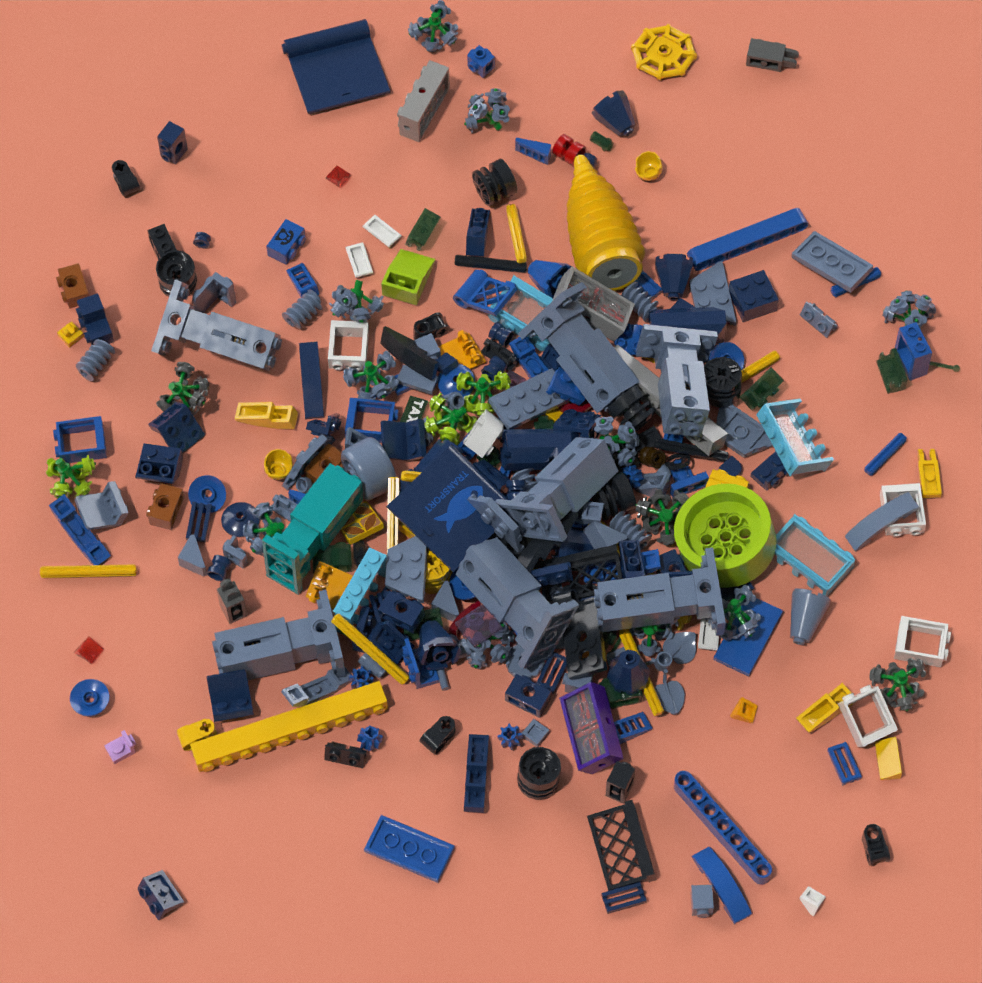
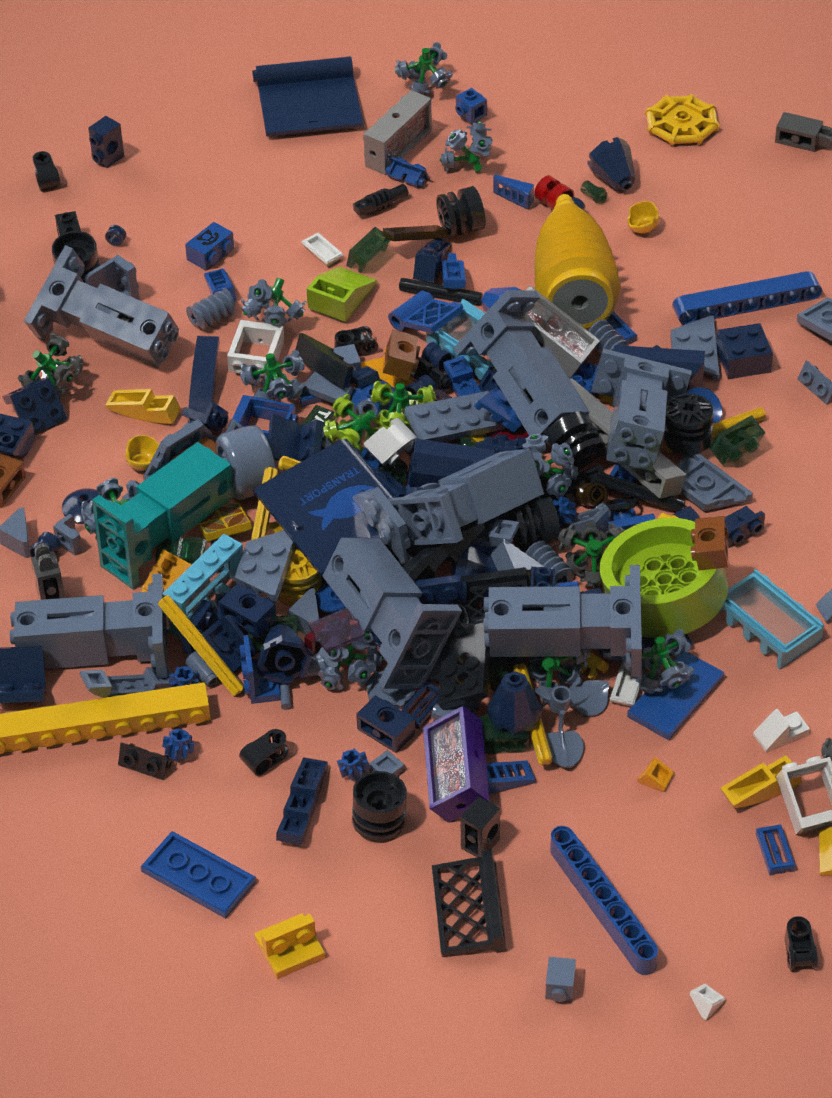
camera: 10 degrees right, 15 degrees down
(201, 506) = (49, 487): dark blue tile -> none
(207, 482) = (42, 469): blue dish -> none
(338, 176) = (285, 195): clear red slope -> none
(359, 260) = (290, 272): white tile -> none
(420, 173) = (379, 199): none -> black hinge
(445, 141) = (414, 174): none -> blue hinge
(459, 209) = (415, 233): none -> dark brown tile
(474, 342) = (401, 355): none -> dark orange brick
(492, 899) = (290, 945): none -> yellow bracket
(499, 245) = (453, 273): none -> blue hinge
(516, 233) = (476, 264): yellow axle -> none
(637, 886) = (459, 961): dark blue tile -> none
(673, 274) = (652, 317): dark blue cone -> none
(723, 884) = (593, 967): blue slope -> none
(767, 520) = (710, 543): none -> dark orange brick
(791, 439) = (764, 490): medium azure window -> none
(806, 614) = (753, 675): sand blue cone -> none
(834, 657) = (780, 730): none -> white slope

